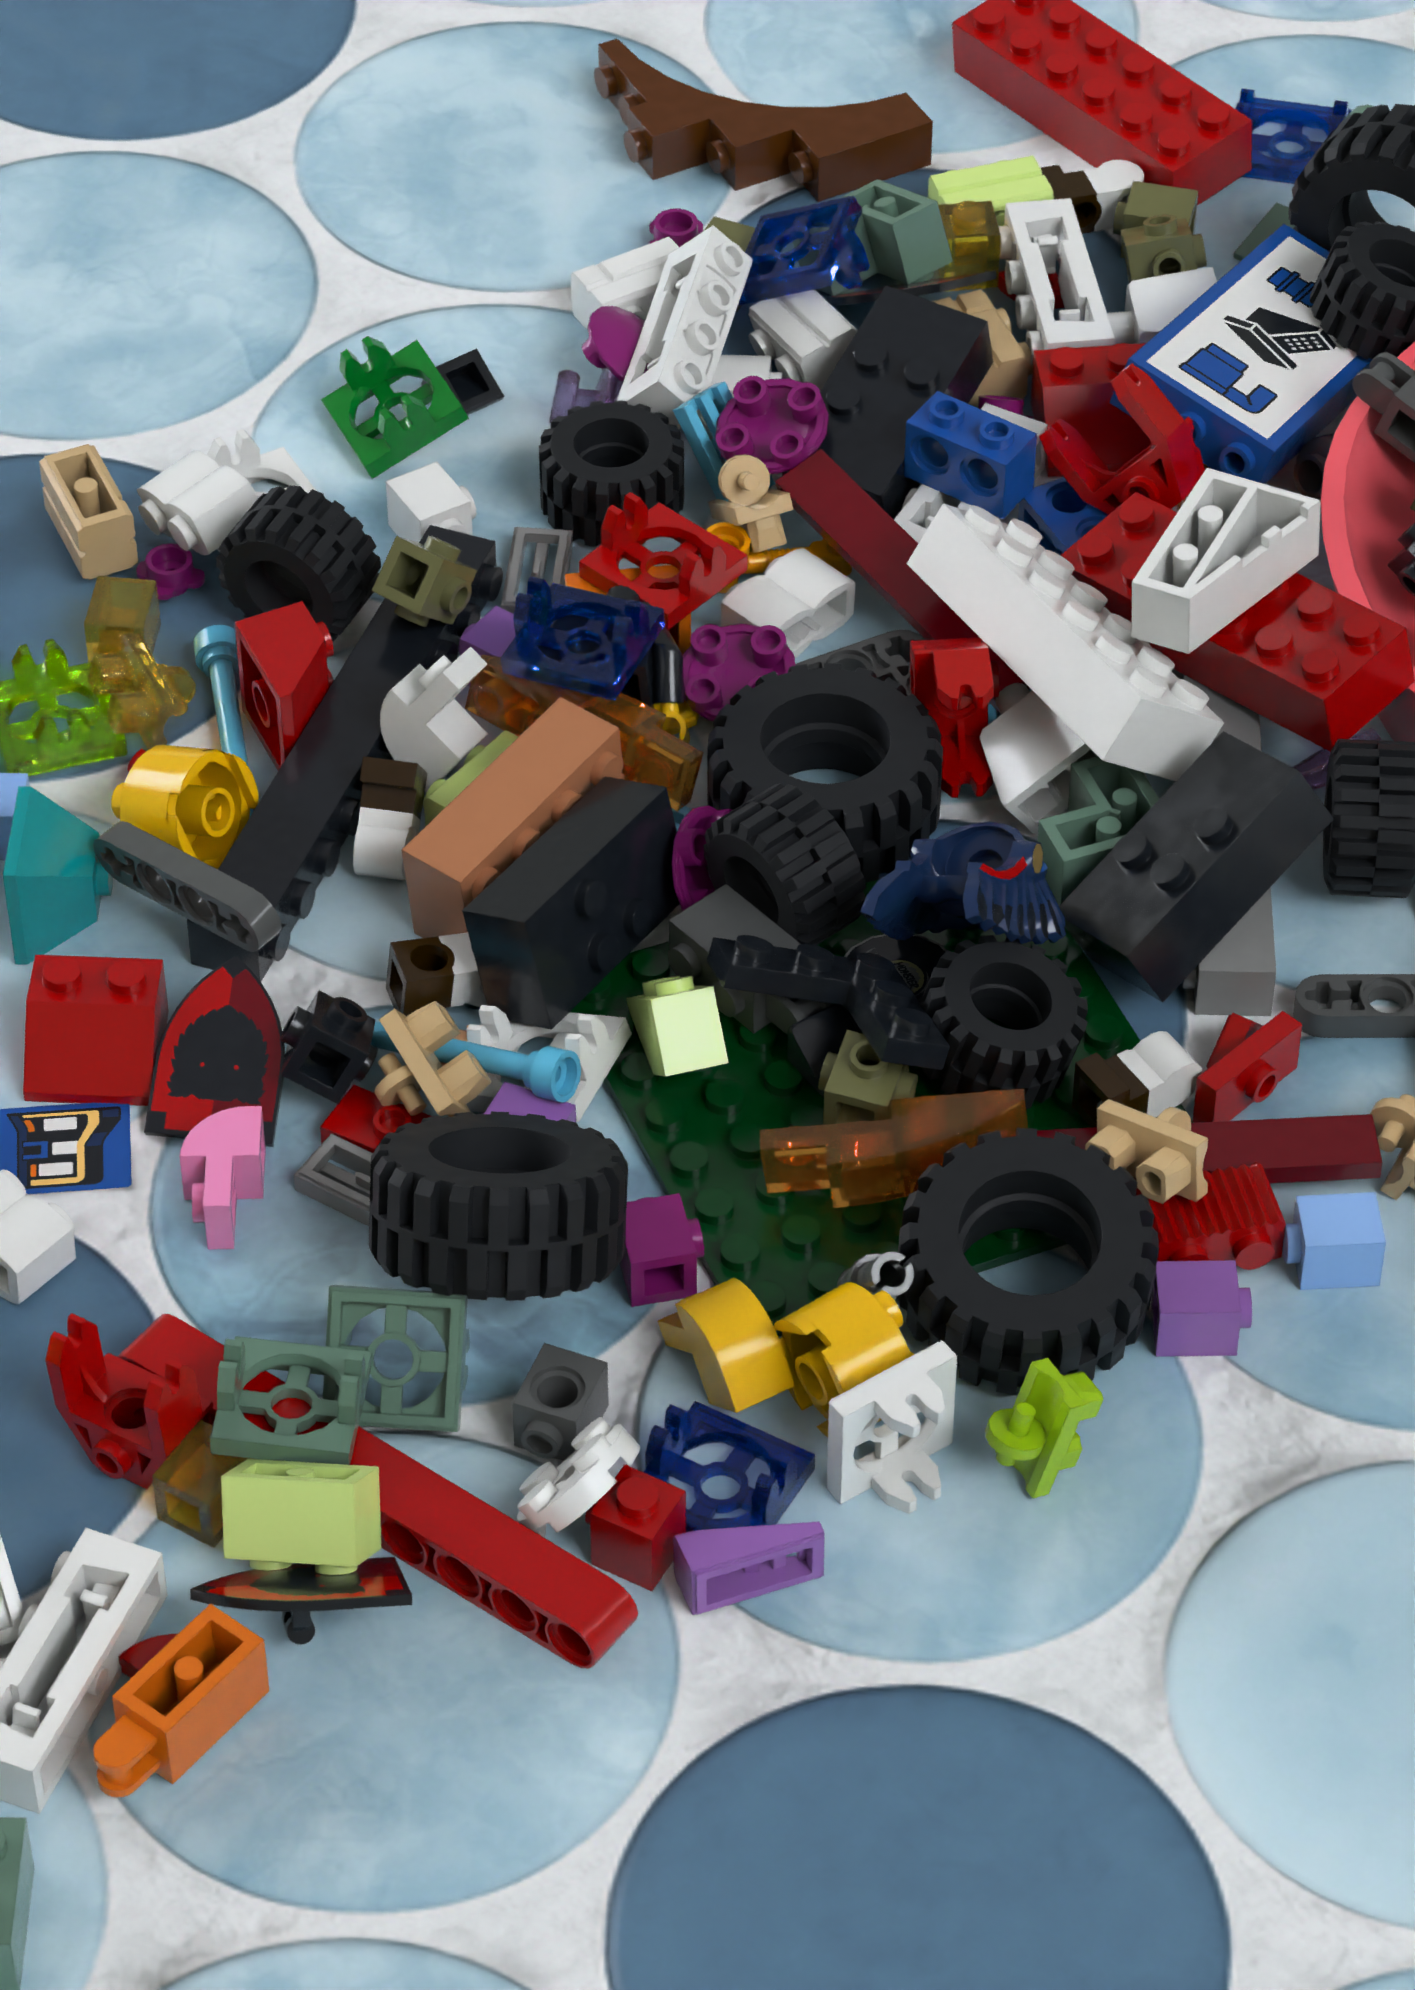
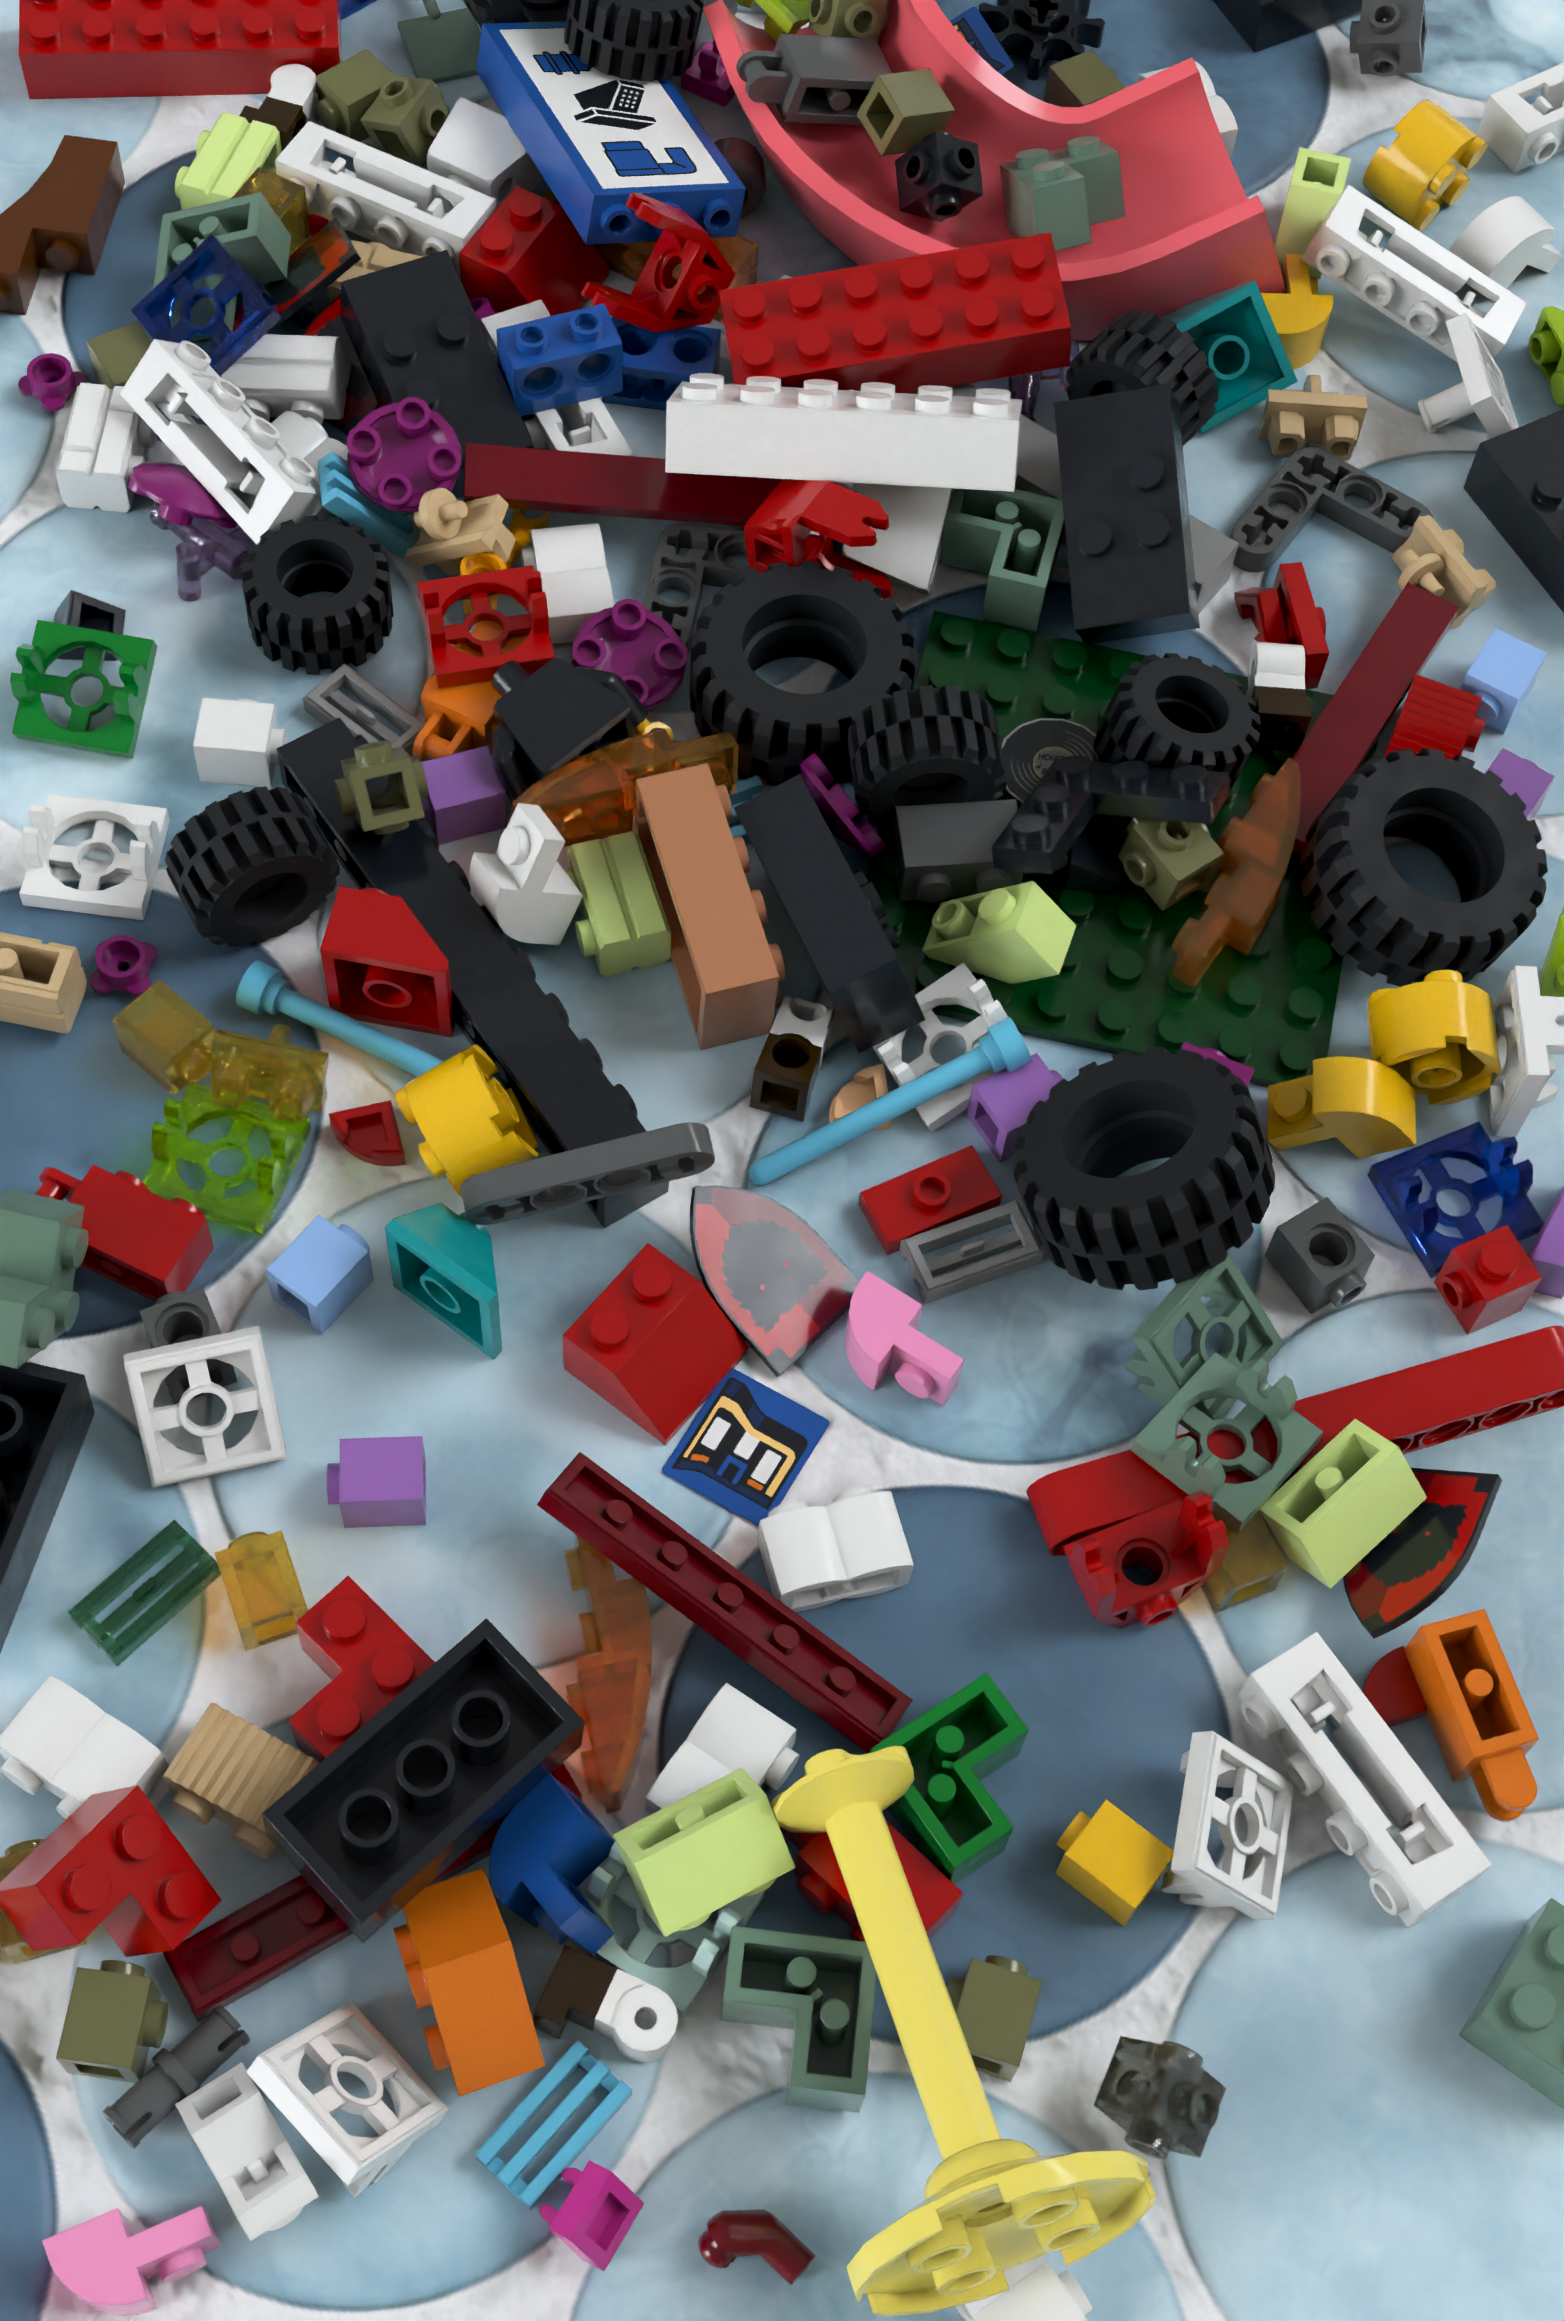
camera: 60 degrees left, 15 degrees up
(196, 502) = (93, 890): white brick -> none
(328, 1045) = (829, 1183): black brick -> none
(387, 815) = (591, 985): leg -> none
(416, 1040) = (894, 1113): tan hips -> none
(573, 1487) = (1397, 1286): white plate -> none
(595, 673) = (562, 776): clear blue piece -> none
(880, 1273) = (1376, 971): dark grey pin -> none
(966, 879) = (1044, 649): dark blue piece -> none
(1154, 1150) = (1387, 722): tan hips -> none
(1221, 558) = (900, 282): white wedge -> none

